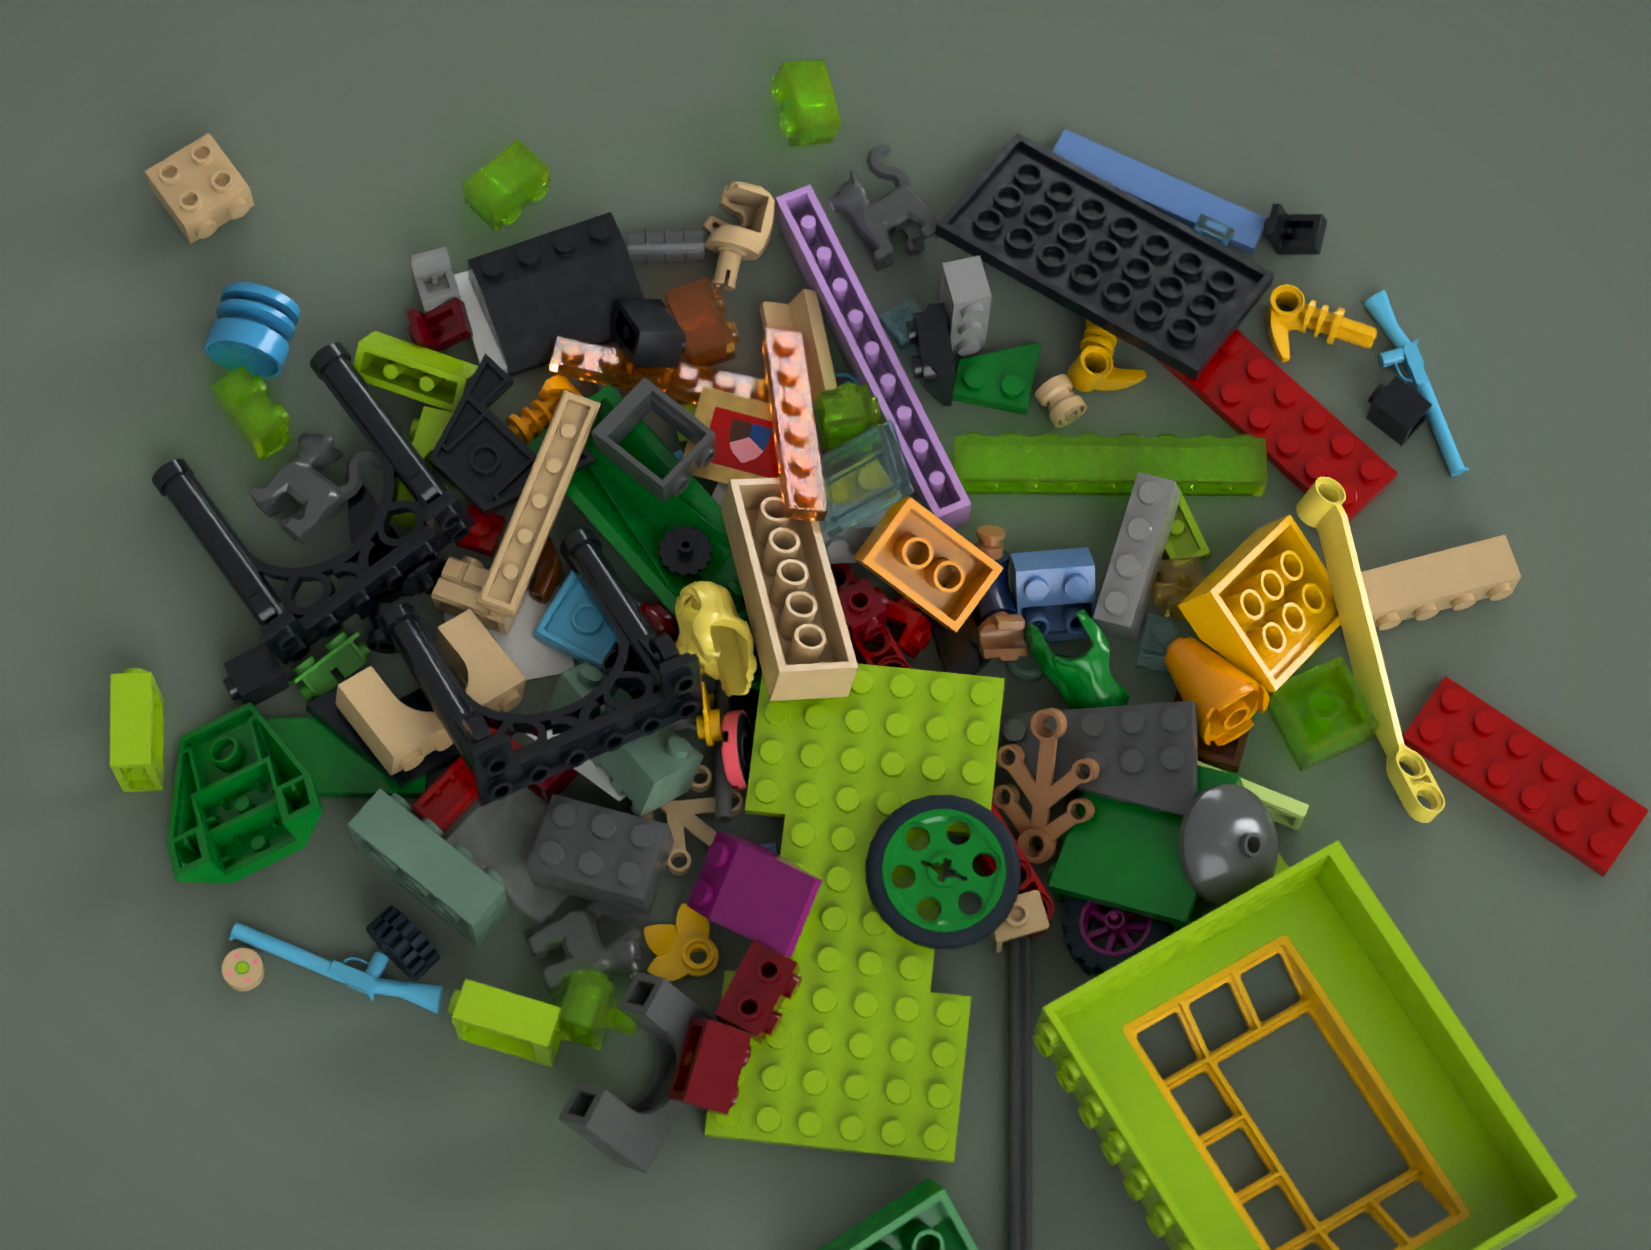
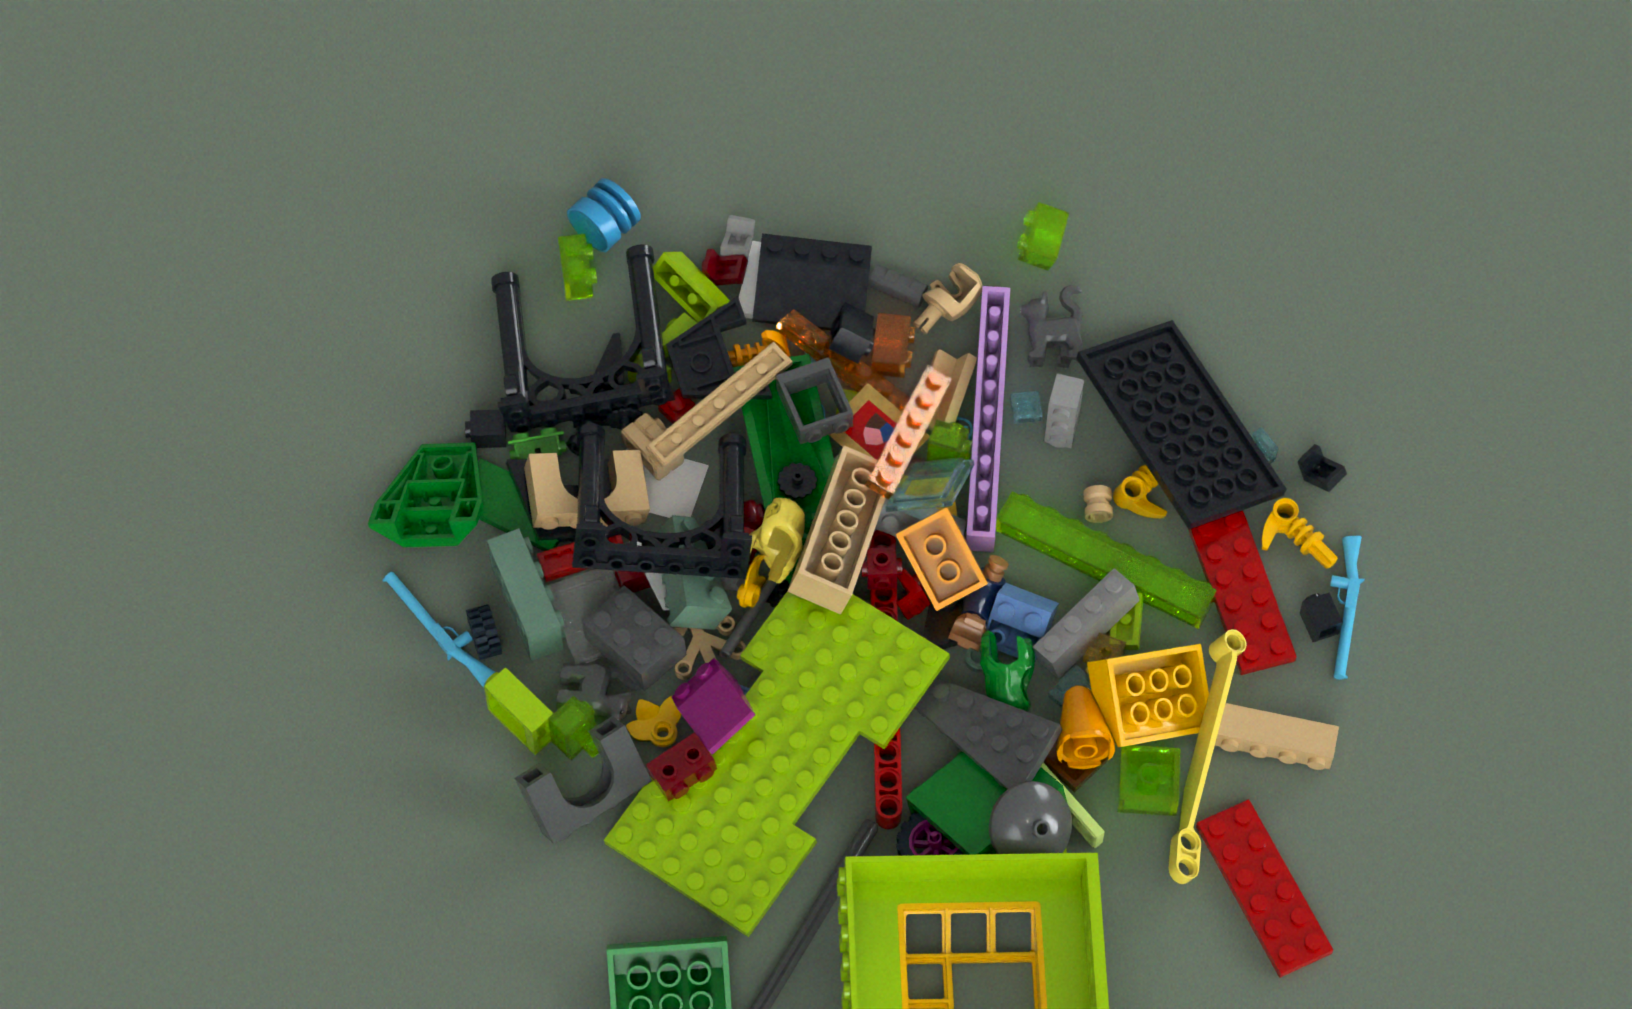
camera: 30 degrees right, 5 degrees down
(136, 731) = (395, 426): lime window -> none
(200, 188) = (622, 112): tan brick -> none
(243, 969) = (380, 602): tan tile -> none
(312, 492) = (582, 325): dark grey animal -> none
(507, 186) = (818, 200): clear neon green brick -> none
(547, 574) = (705, 453): reddish brown arm -> none
(576, 625) = (701, 493): medium azure plate -> none
(710, 1066) = (627, 796): dark red brick -> none
(737, 748) = (756, 614): tile -> none
(899, 906) = (866, 780): wedge -> none
(934, 352) = (1028, 431): black slope -> none
(998, 378) = (1067, 471): green wing -> none
(1025, 918) = (872, 805): tan bracket -> none
(1042, 791) = (935, 735): medium nougat plant -> none
(1161, 190) = (1247, 401): medium blue tile -> none

